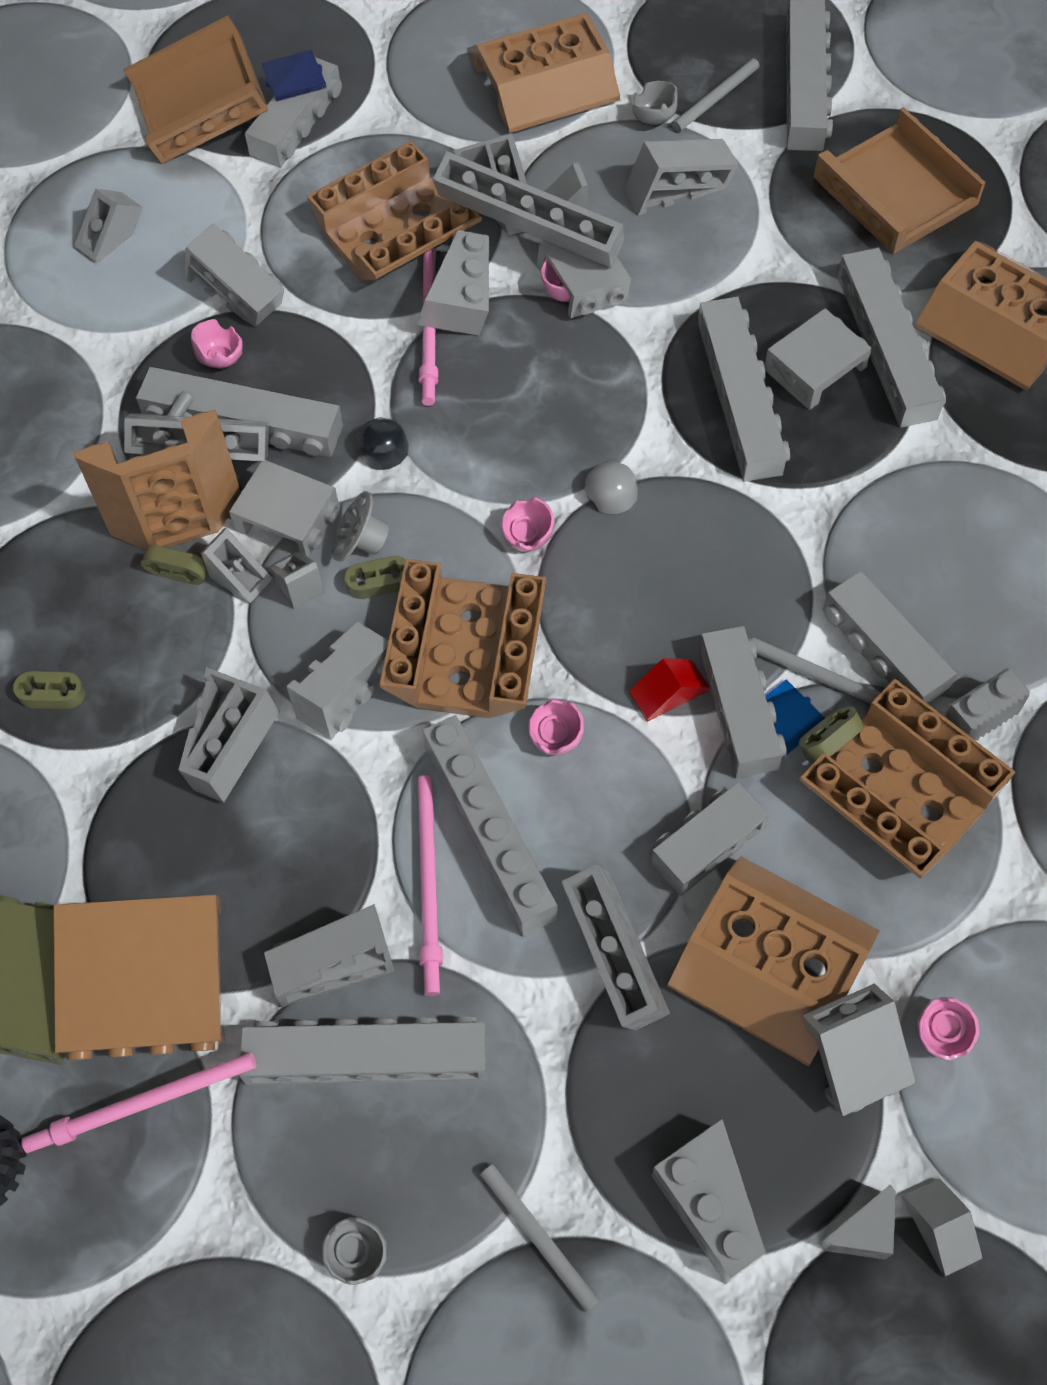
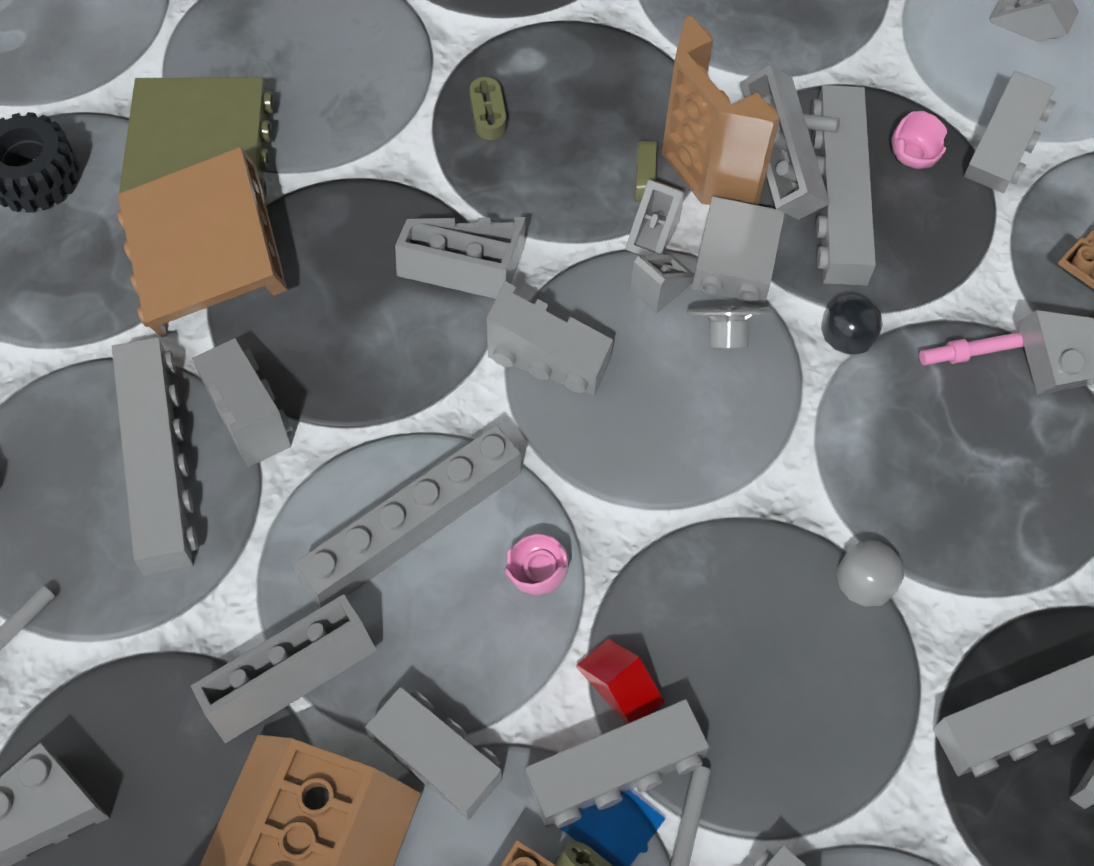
camera: 75 degrees right, 0 degrees up
(67, 1129) = (64, 232): bright pink bar -> none
(376, 576) = (677, 360): olive beam -> none
(430, 953) = (263, 494): bright pink bar -> none
(434, 642) = (619, 423): medium nougat slope -> none
(528, 524) = (786, 487): bright pink hair -> none

